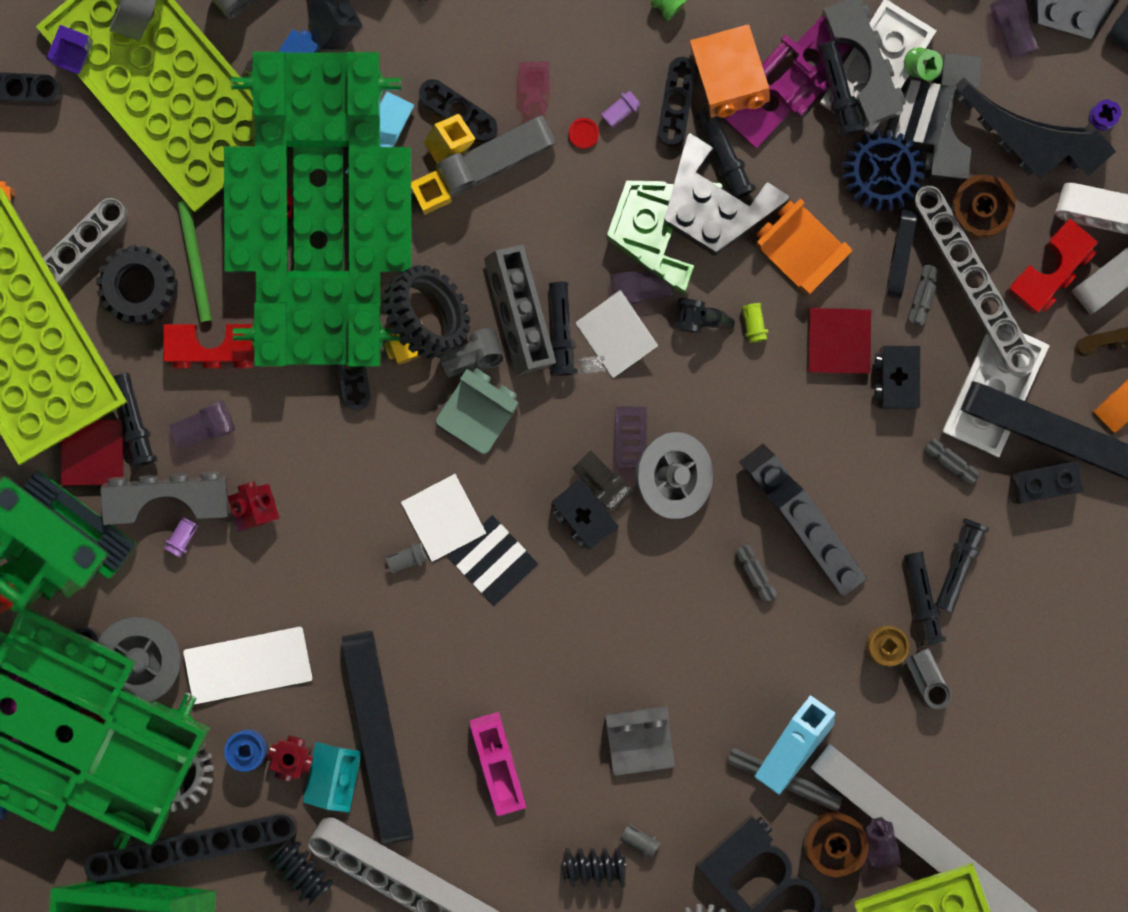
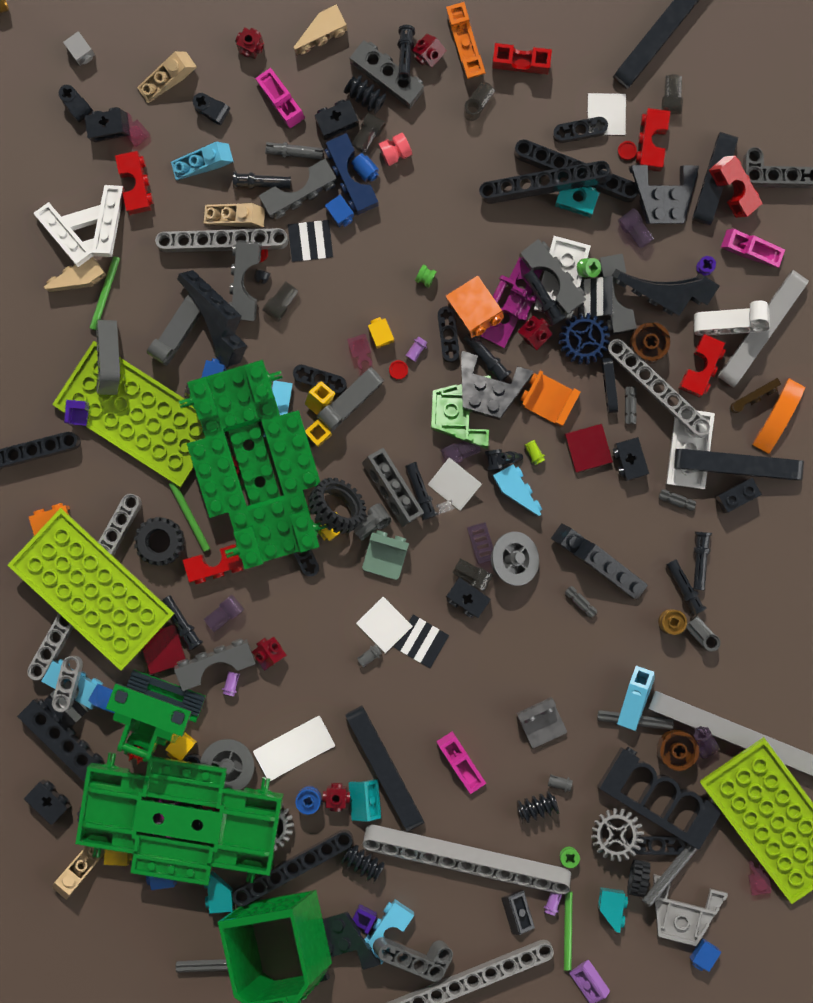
camera: 10 degrees left, 0 degrees up
(65, 854) = (219, 895): none -> teal slope
(75, 609) = (181, 747): none -> yellow brick
(573, 67) = (380, 332): none -> yellow brick
(705, 366) = (513, 487): none -> medium azure slope
(811, 138) = (535, 332): none -> dark red brick

